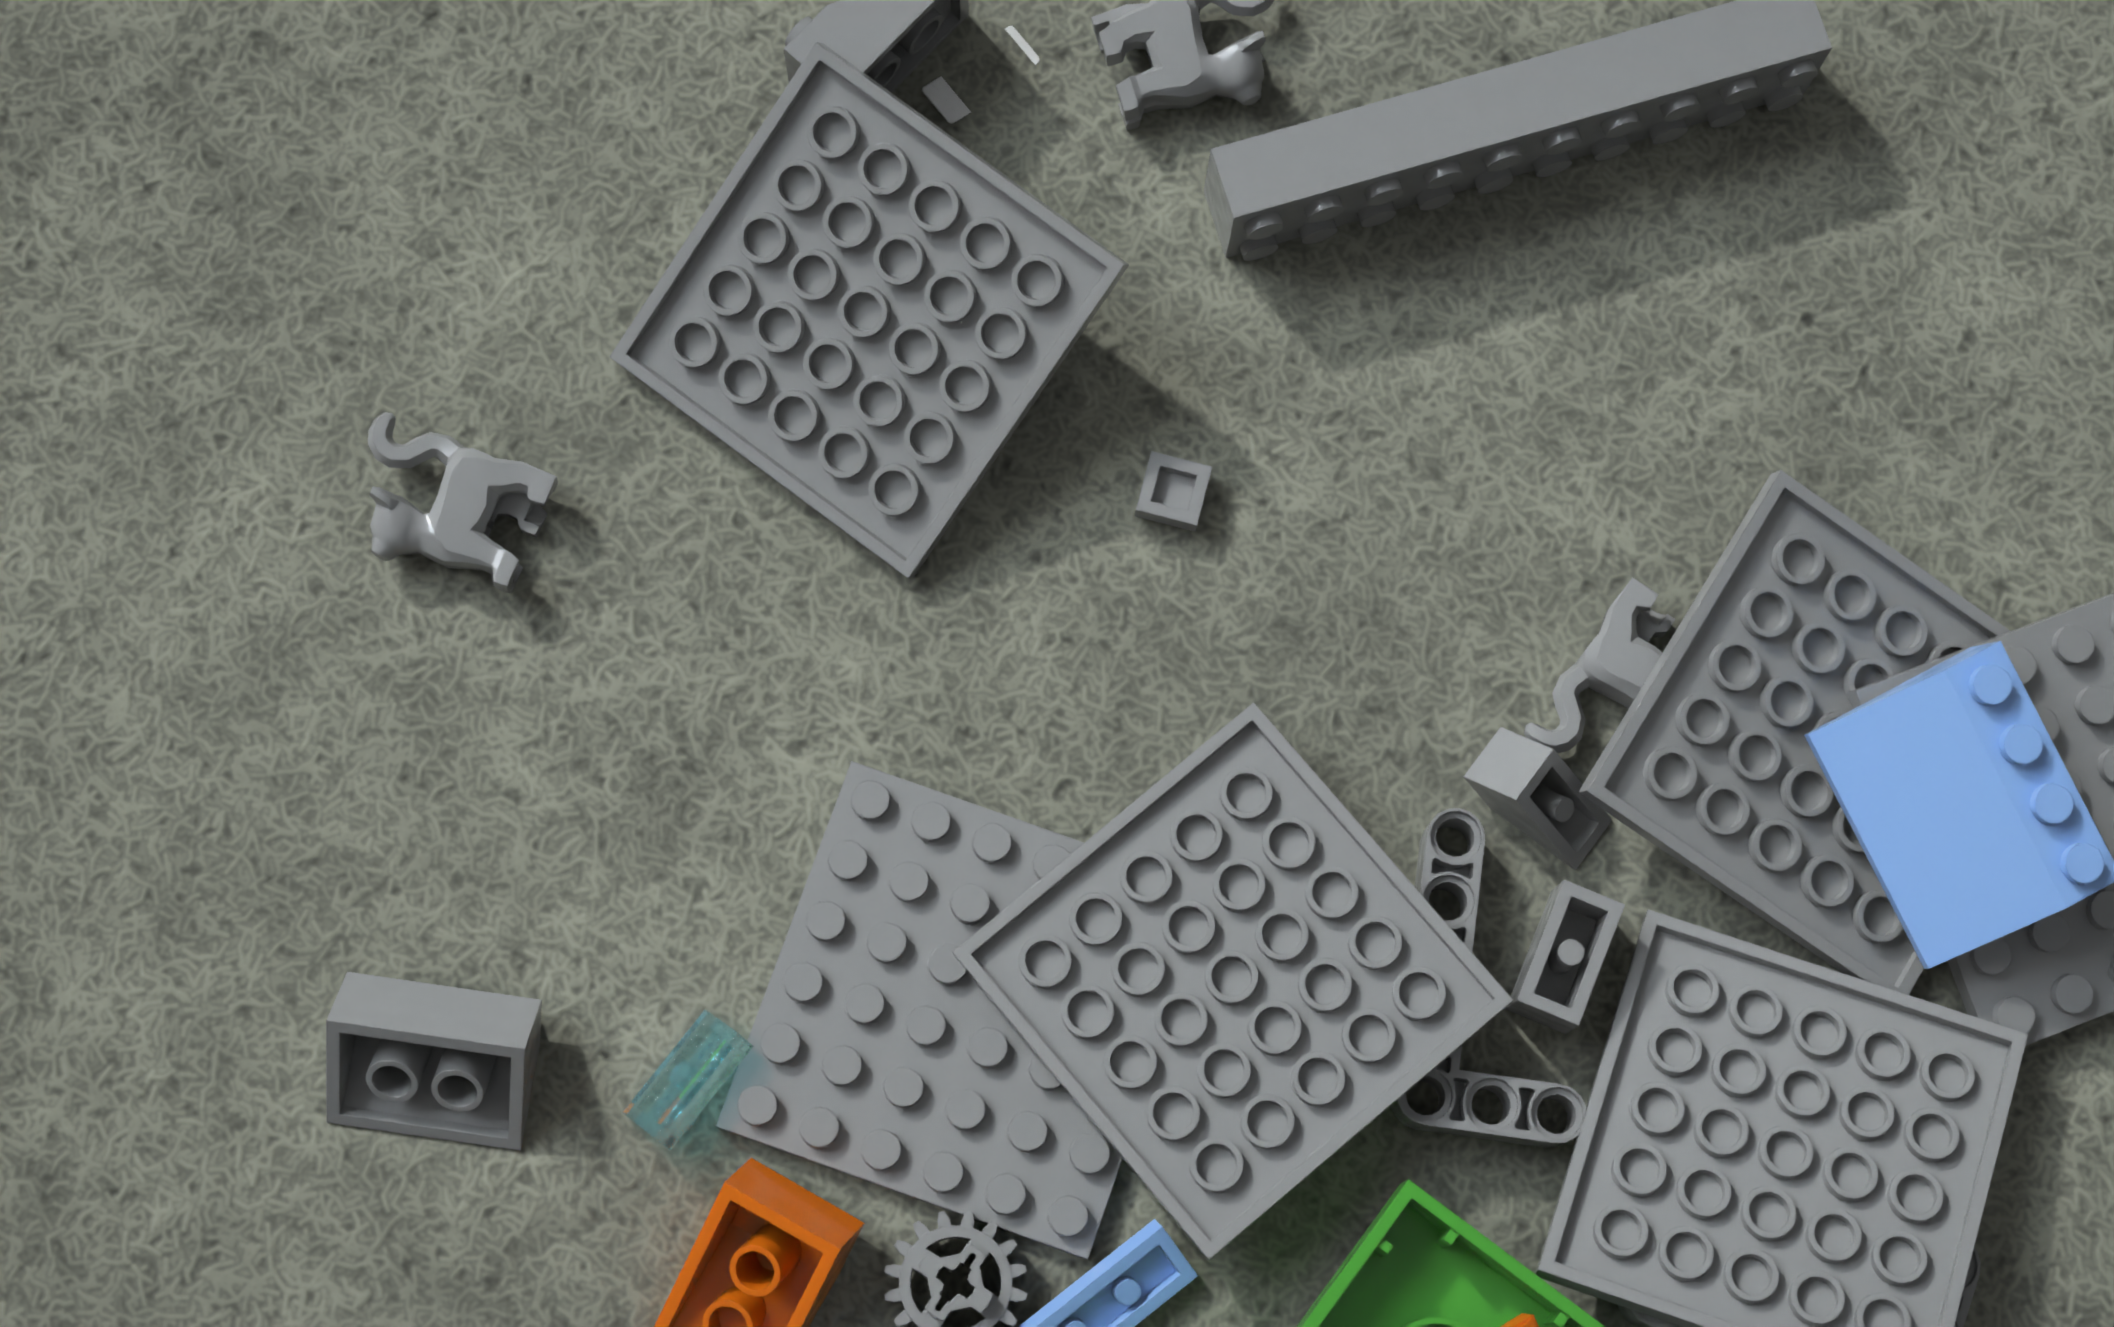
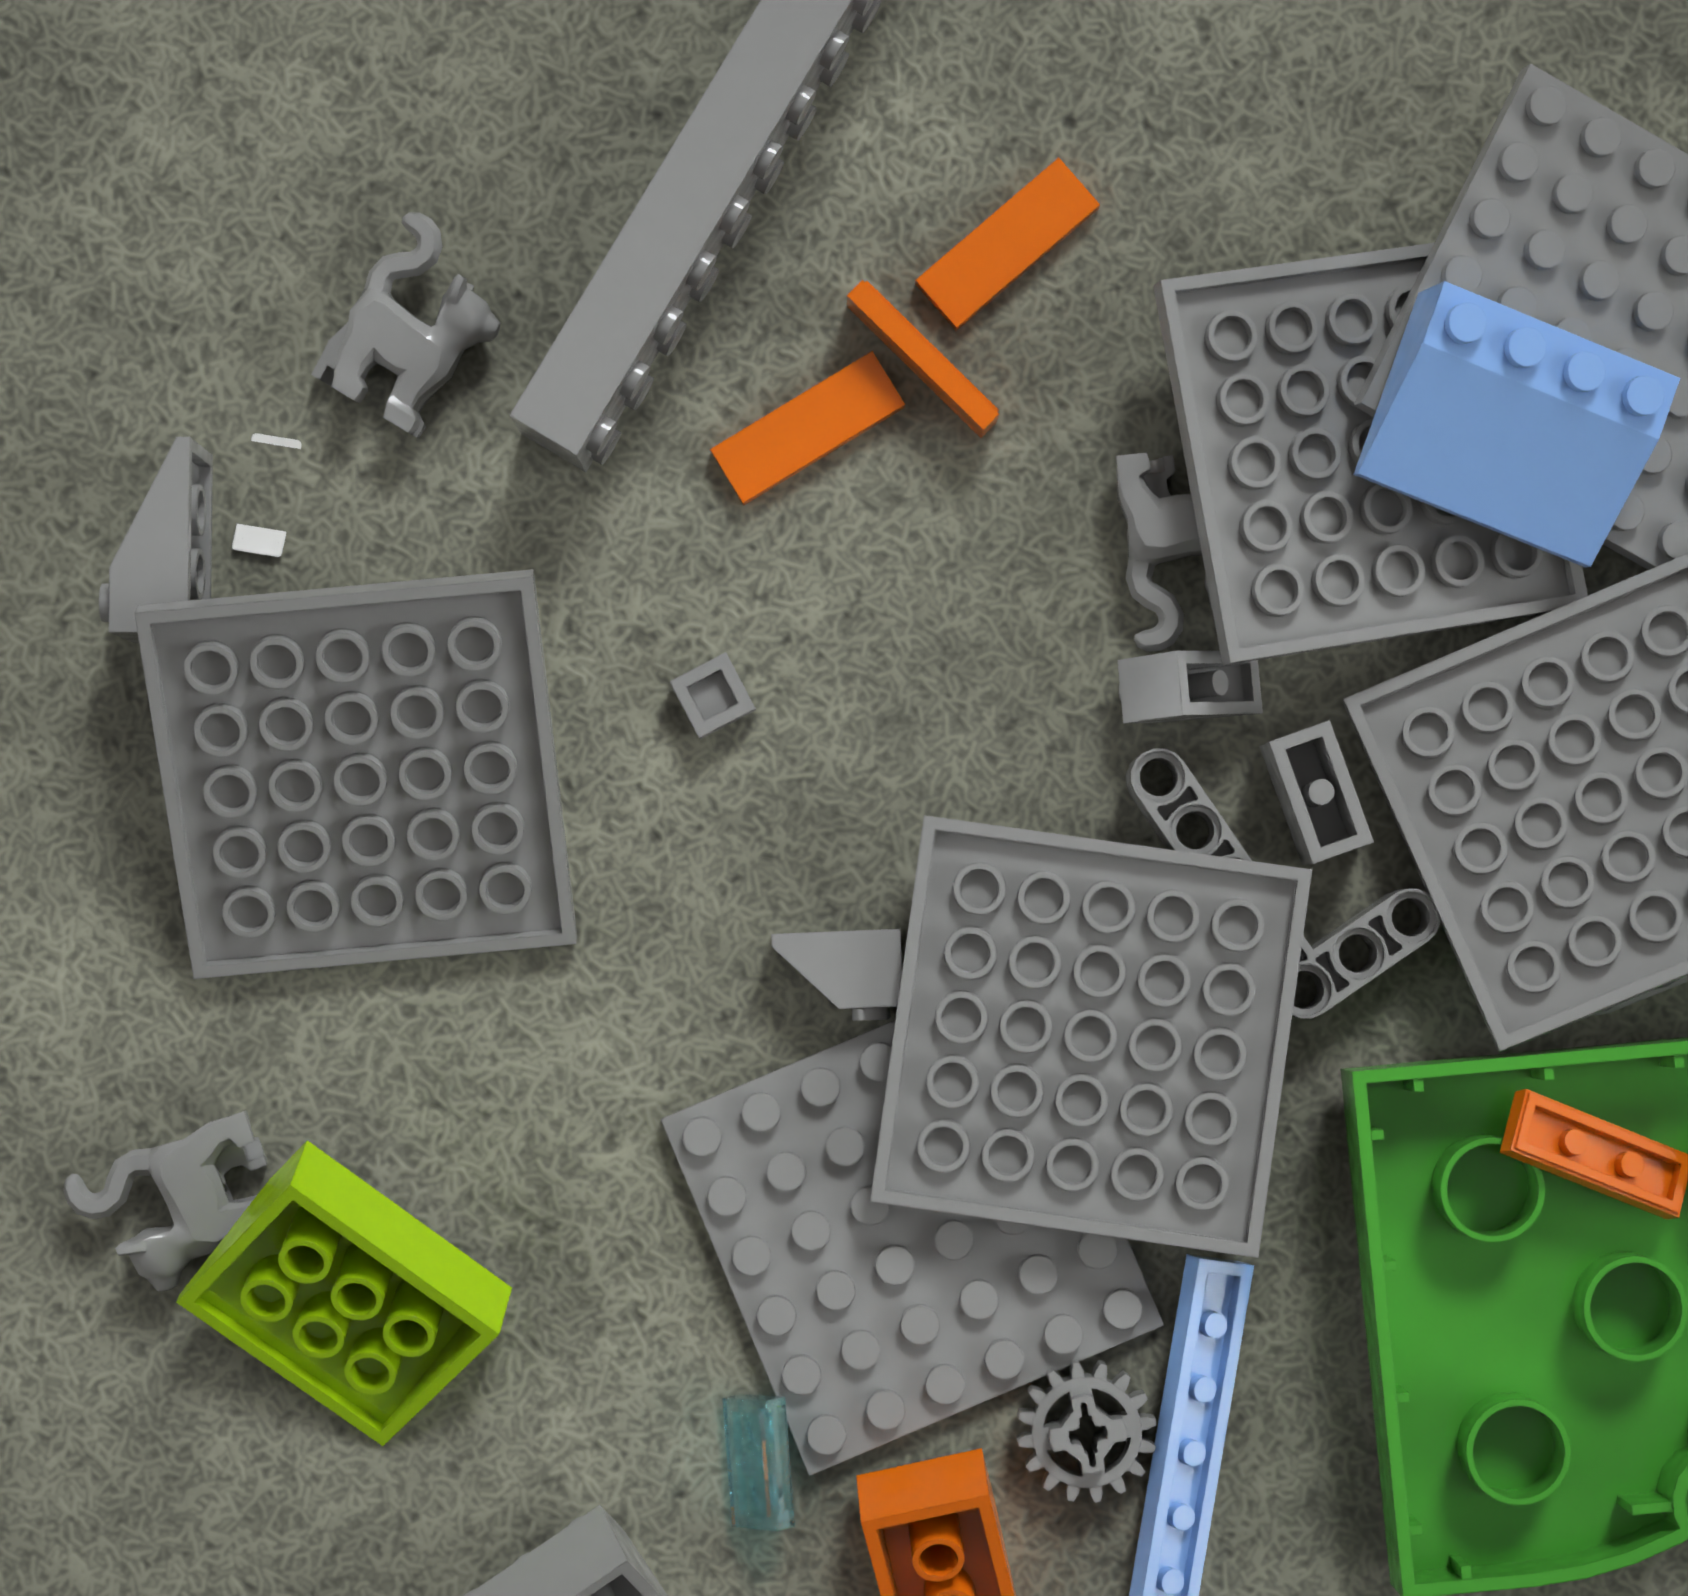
camera: 40 degrees left, 10 degrees up
(503, 674) = (347, 1295): none -> lime slope
(1093, 770) = (849, 967): none -> light grey slope
(1418, 366) = (807, 428): none -> orange tile
(1549, 387) = (922, 358): none -> orange tile
(1685, 364) = (1007, 244): none -> orange tile

